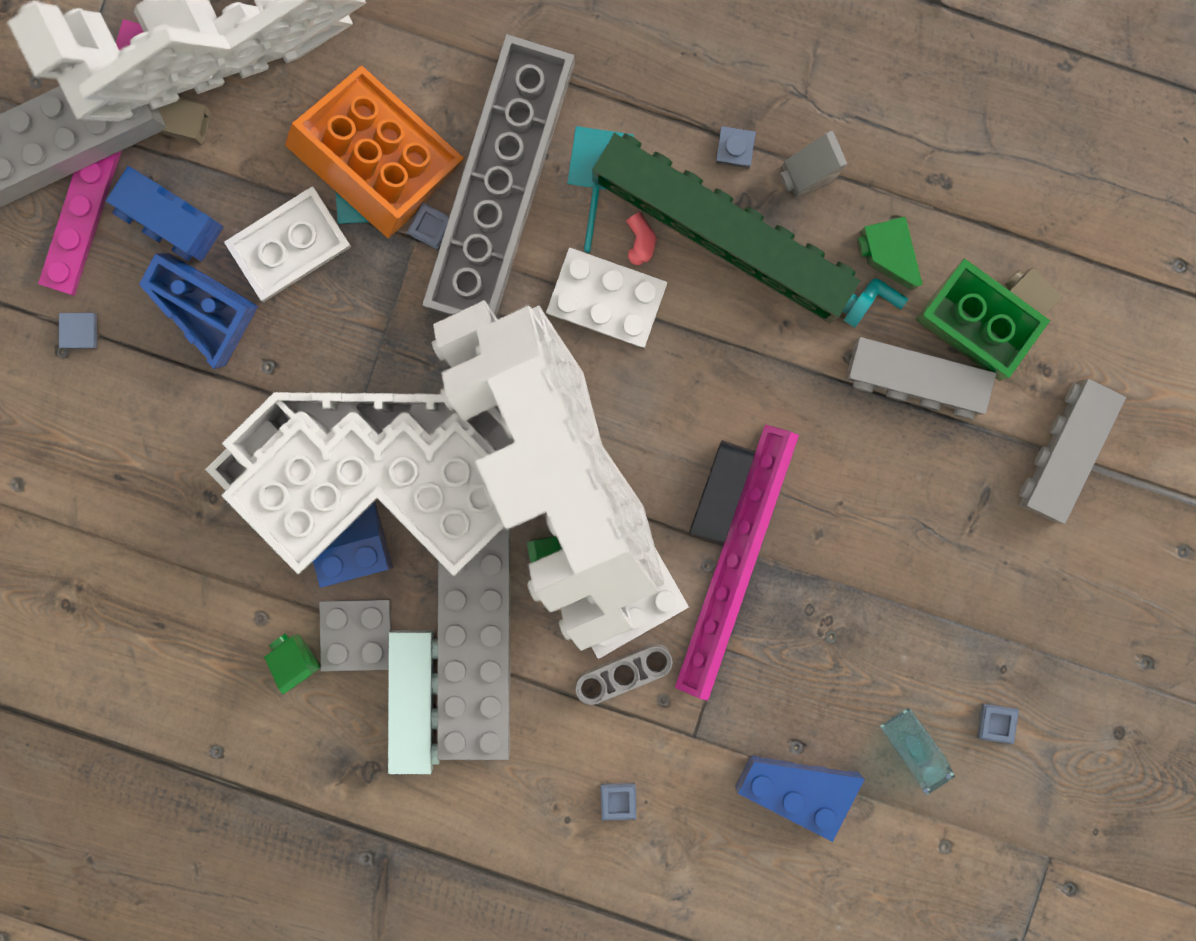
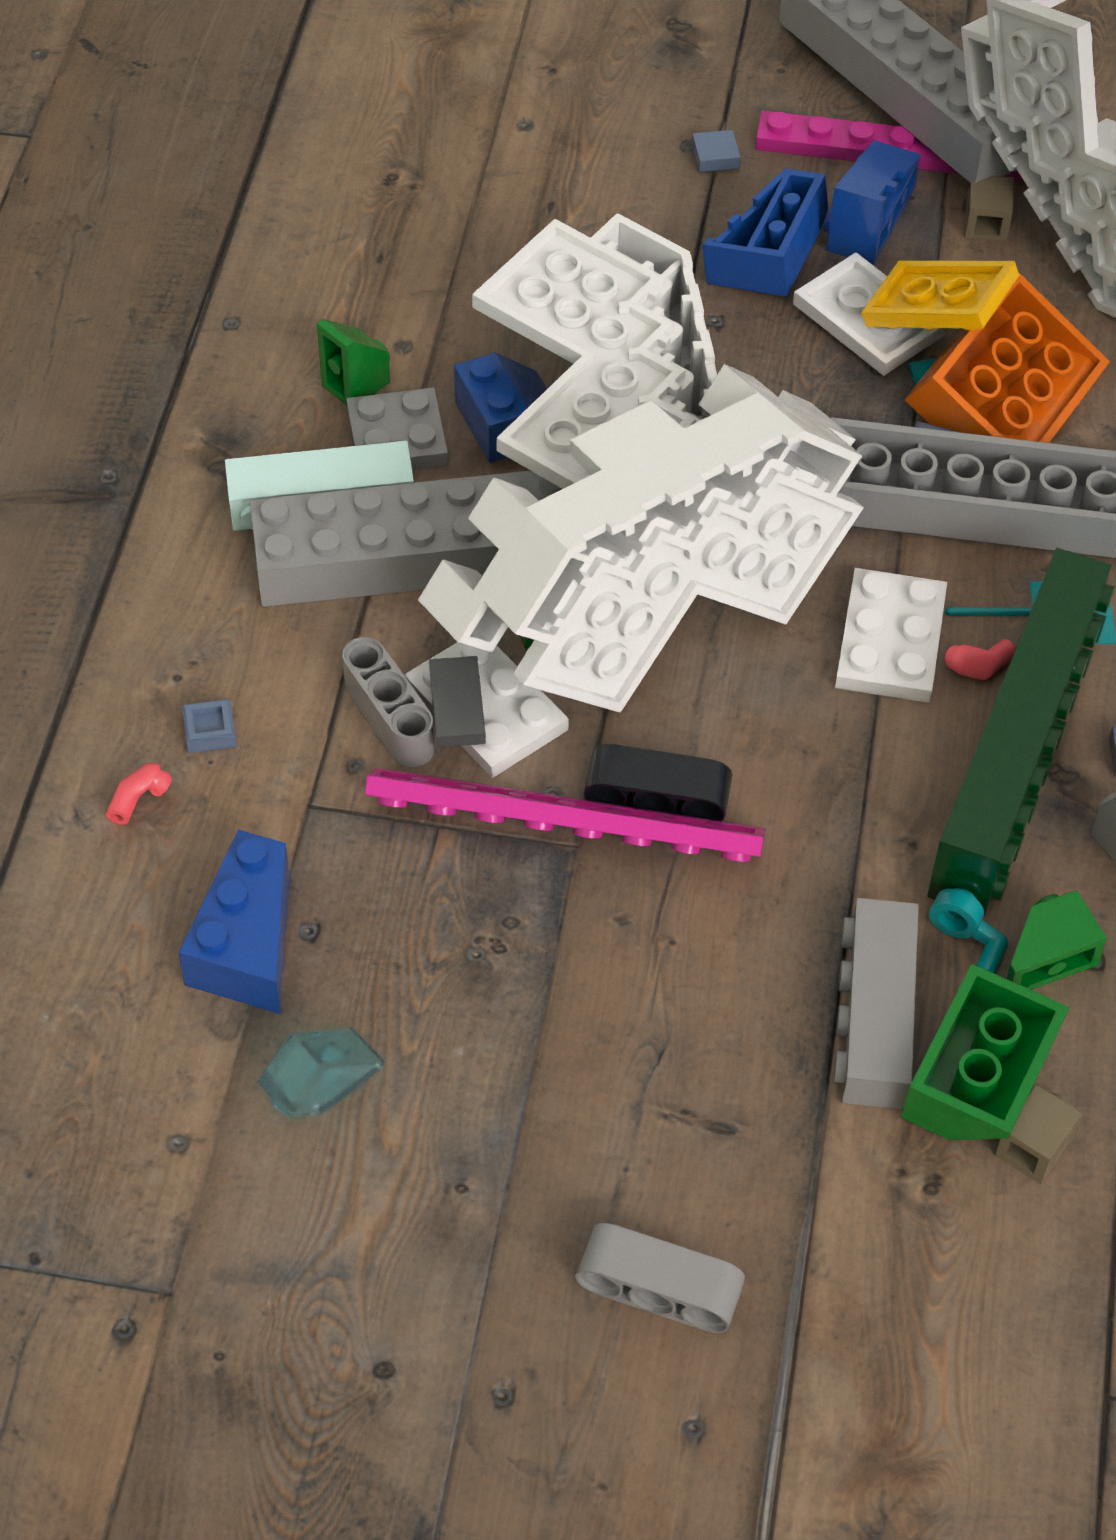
camera: 85 degrees right, 35 degrees down
(306, 190) = (940, 294): none -> yellow plate
(649, 628) = (457, 701): none -> dark grey tile
(667, 857) = (130, 788): none -> coral arm
(998, 723) = (377, 1185): sand blue tile -> none
(1071, 451) = (818, 1221): light grey brick -> none
(1094, 556) = (660, 1277): none -> light grey beam

